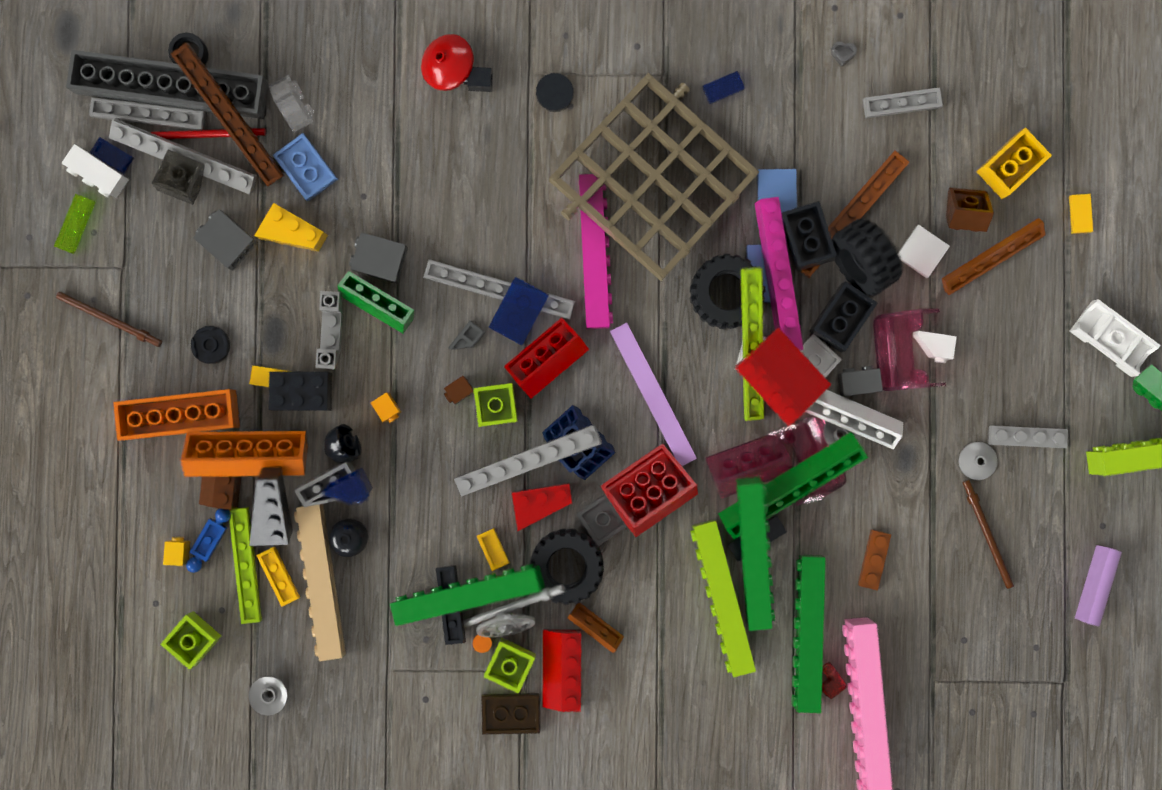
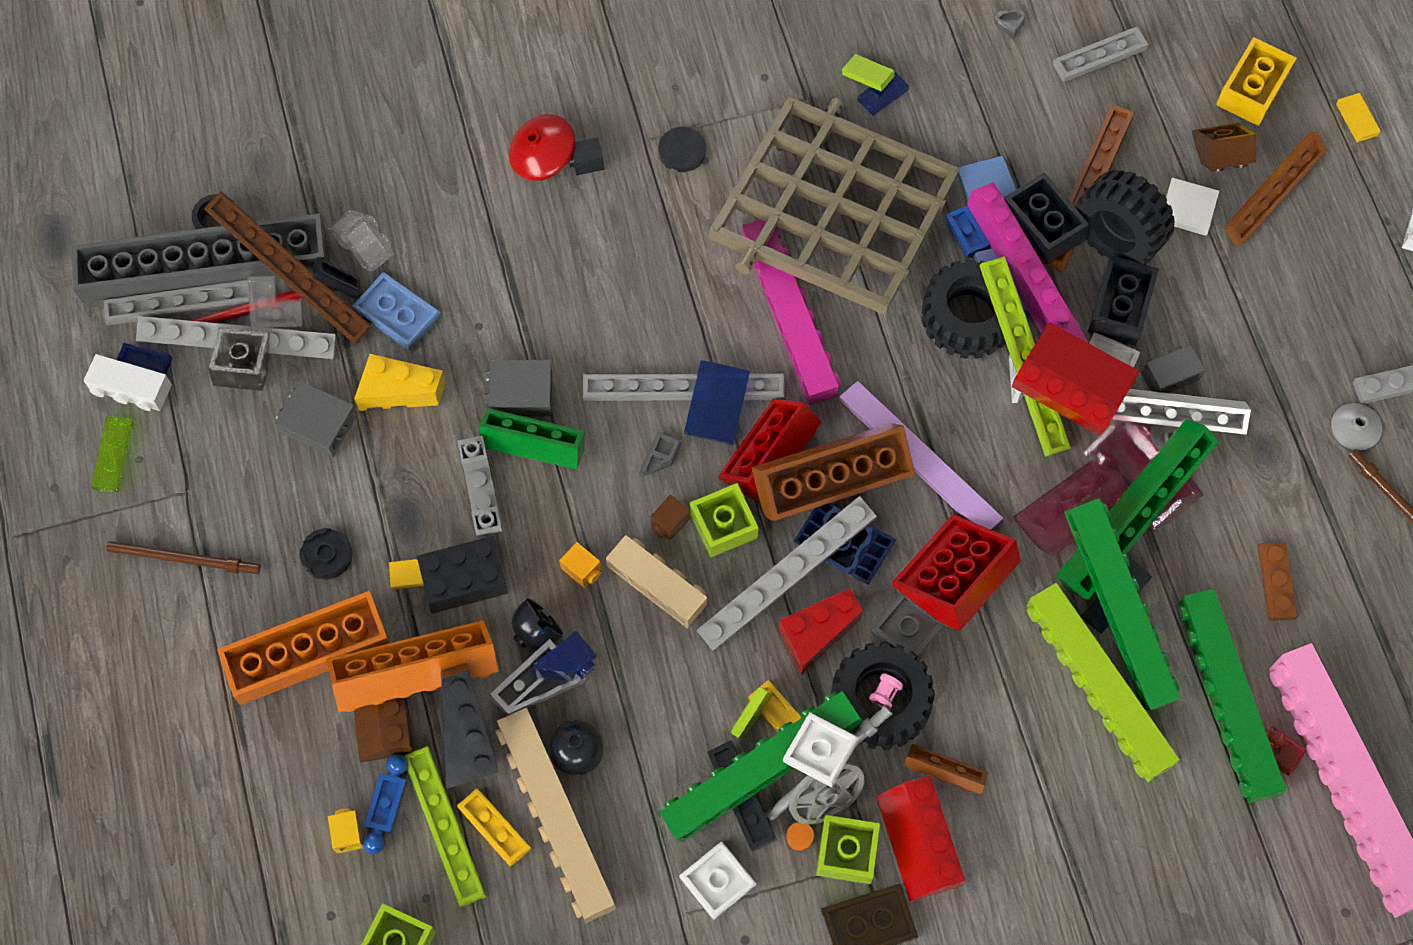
camera: 15 degrees left, 20 degrees down
(207, 142) = (267, 309): none -> clear brick
(264, 131) = (336, 278): none -> black tile
(418, 656) = (717, 880): none -> white tile
(436, 435) = (657, 581): none -> tan brick
(473, 551) = (751, 713): none -> lime tile
(505, 605) = (820, 749): none -> white tile
(566, 573) = (885, 691): none -> bright pink bush
(583, 394) = (833, 471): none -> dark orange brick
(717, 67) = (868, 72): none -> lime tile
(747, 225) = (967, 231): none -> blue plate
(895, 350) = (1199, 321): clear pink windscreen -> none
(936, 345) = (1248, 303): white slope -> none

